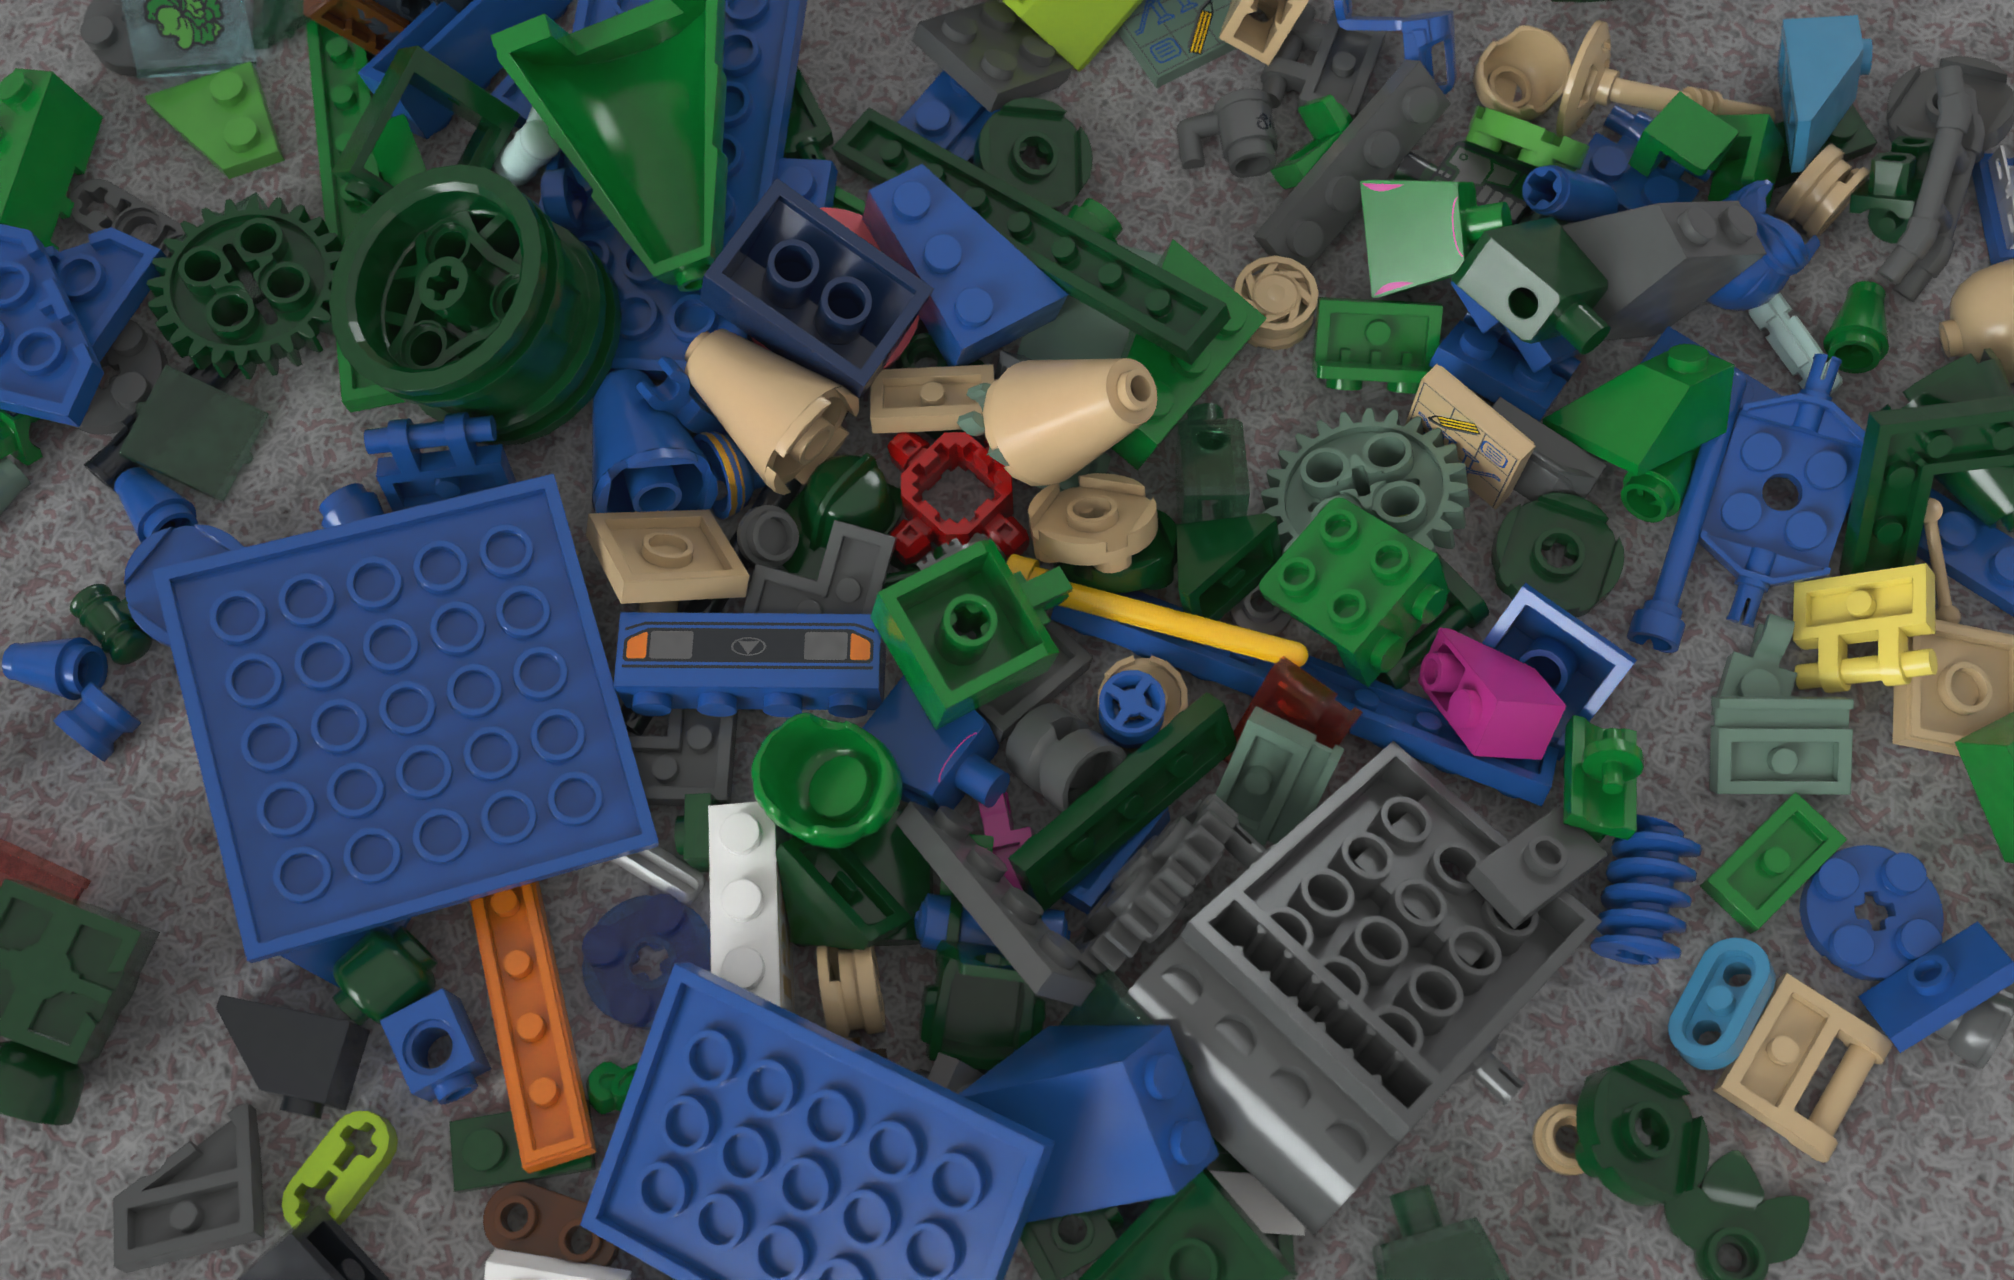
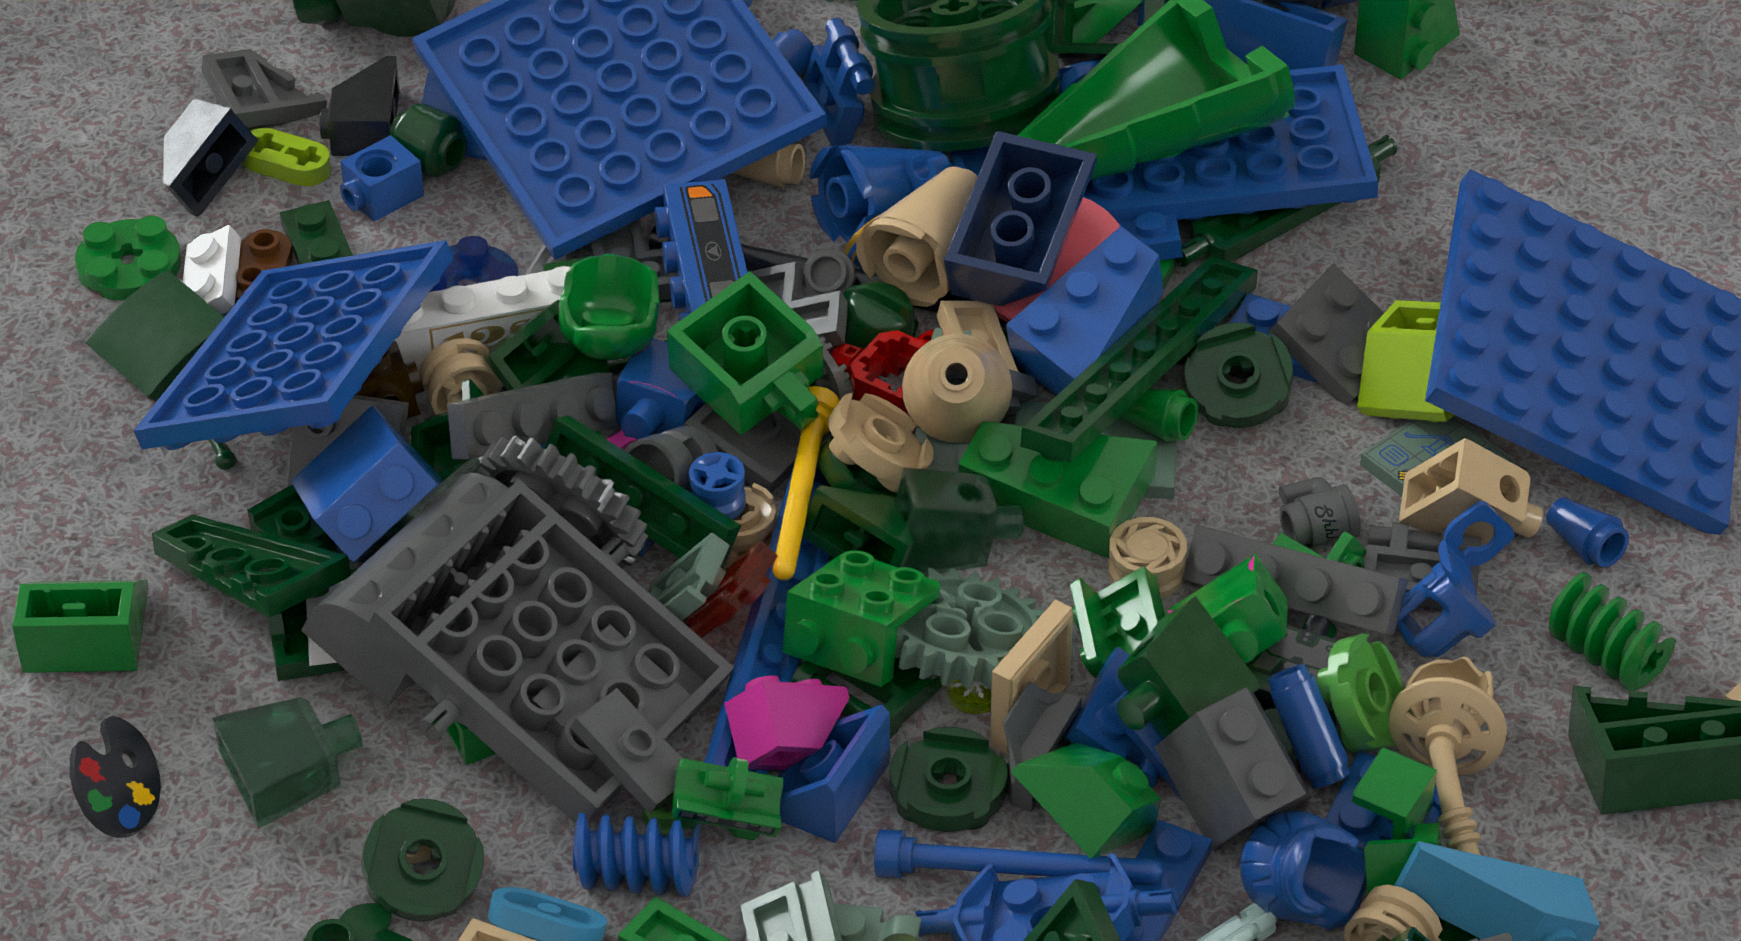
camera: 75 degrees right, 25 degrees down
(532, 1028) = (408, 219): orange tile -> none
(666, 557) = (785, 207): tan tile -> none
(1660, 490) = (1039, 834): green cone -> none

